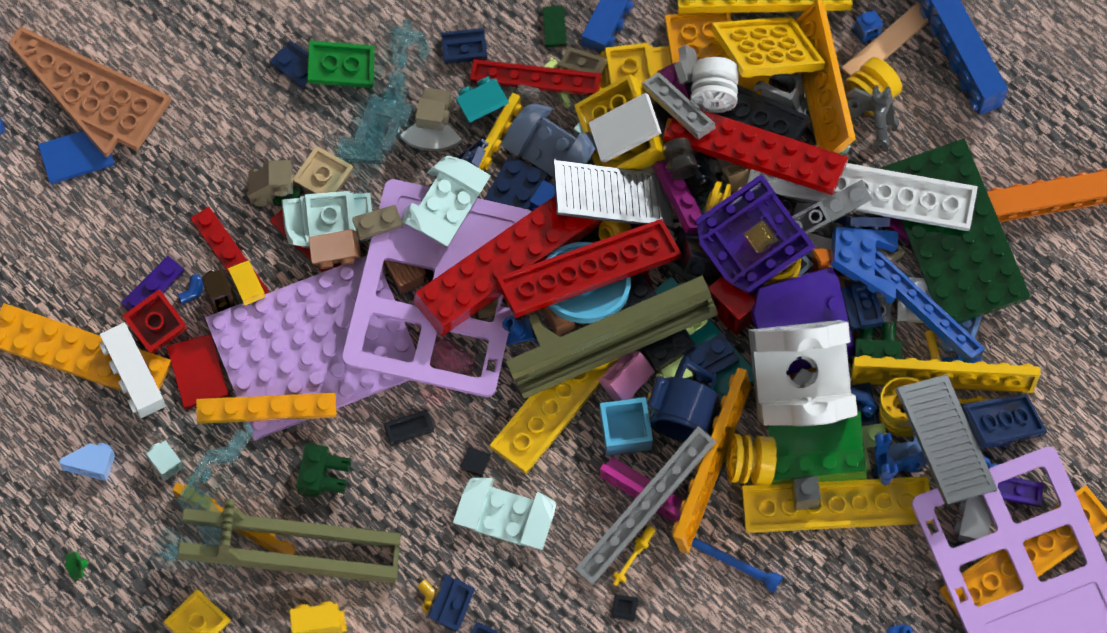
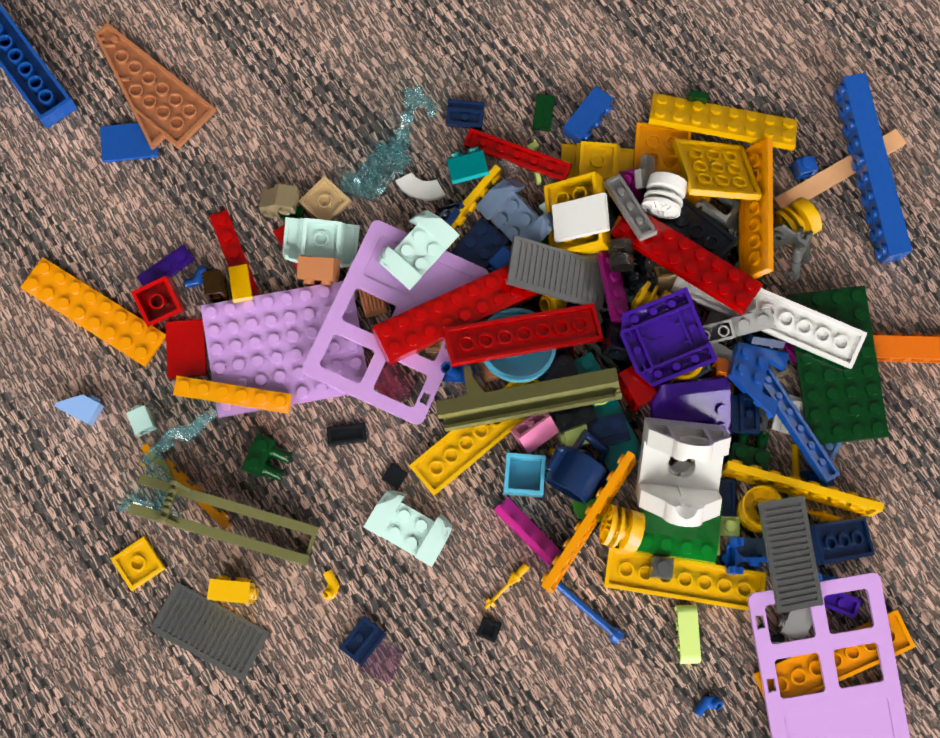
camera: 10 degrees right, 10 degrees up
(75, 565) = (50, 494): green plant -> none
(132, 370) = (130, 339): white brick -> none
(292, 63) = (324, 101): dark blue plate -> none
(340, 64) = (360, 109): green plate -> none
(377, 222) = (357, 256): dark tan plate -> none
(434, 109) = (427, 165): dark tan brick -> none
(450, 603) = (346, 595): dark blue plate -> none
(582, 61) = (559, 149): dark tan plate -> none
(645, 505) = (525, 550): light grey plate -> none
(760, 236) = (673, 342): clear yellow brick -> none
(853, 557) = (688, 632): none -> yellowish green beam
(866, 400) = (731, 500): blue arm -> none

